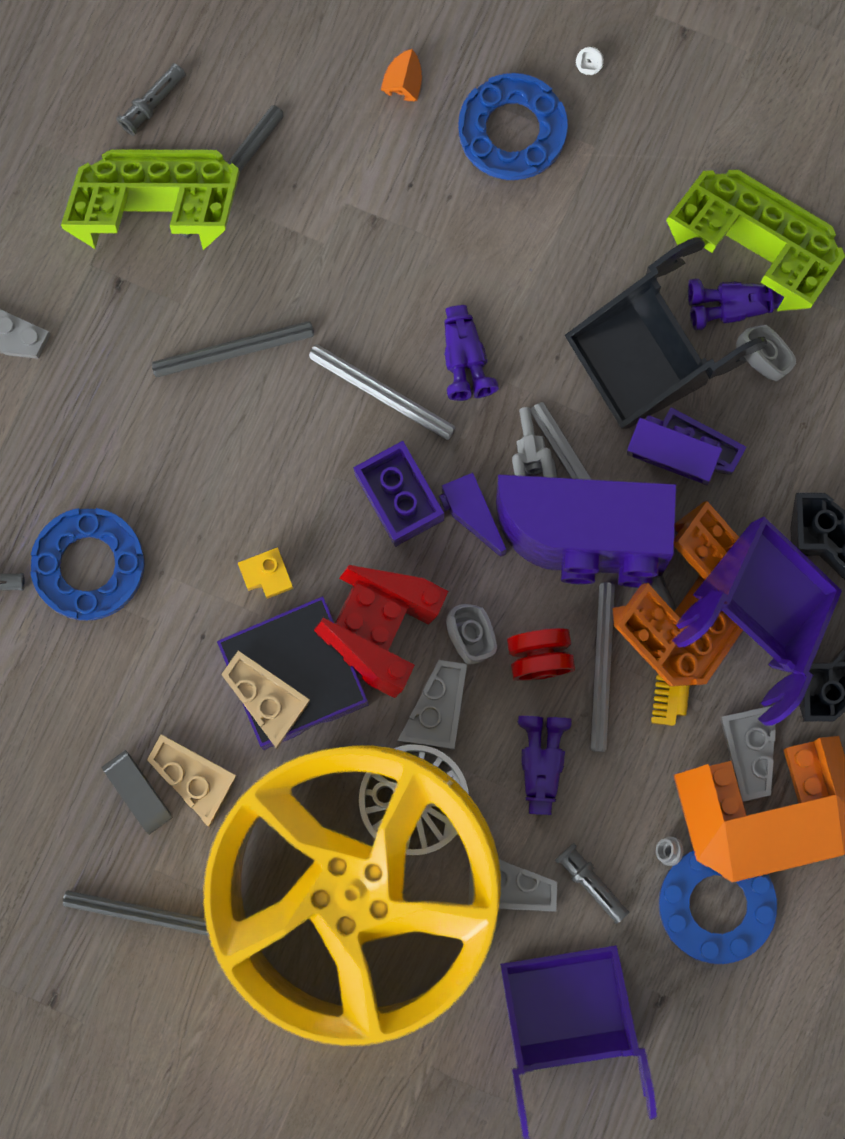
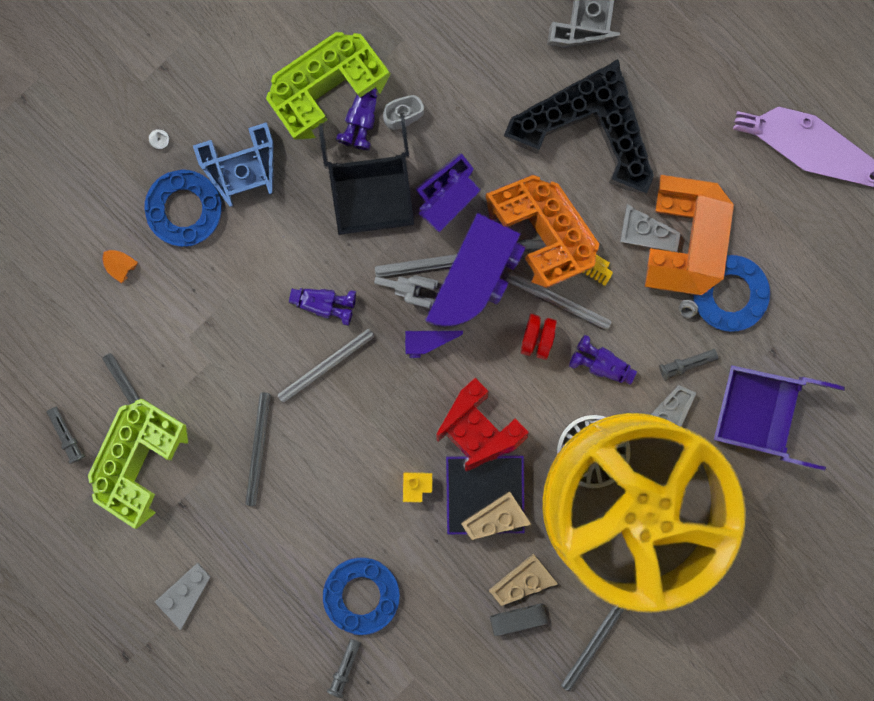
camera: 75 degrees left, 10 degrees up
(399, 493) = (398, 382): dark purple brick -> none
(438, 709) = (543, 413): light grey wing -> none
(471, 633) = (505, 373): light grey piece -> none
(598, 177) = (241, 169): none -> medium blue wedge
(773, 598) = (566, 179): dark purple piece -> none

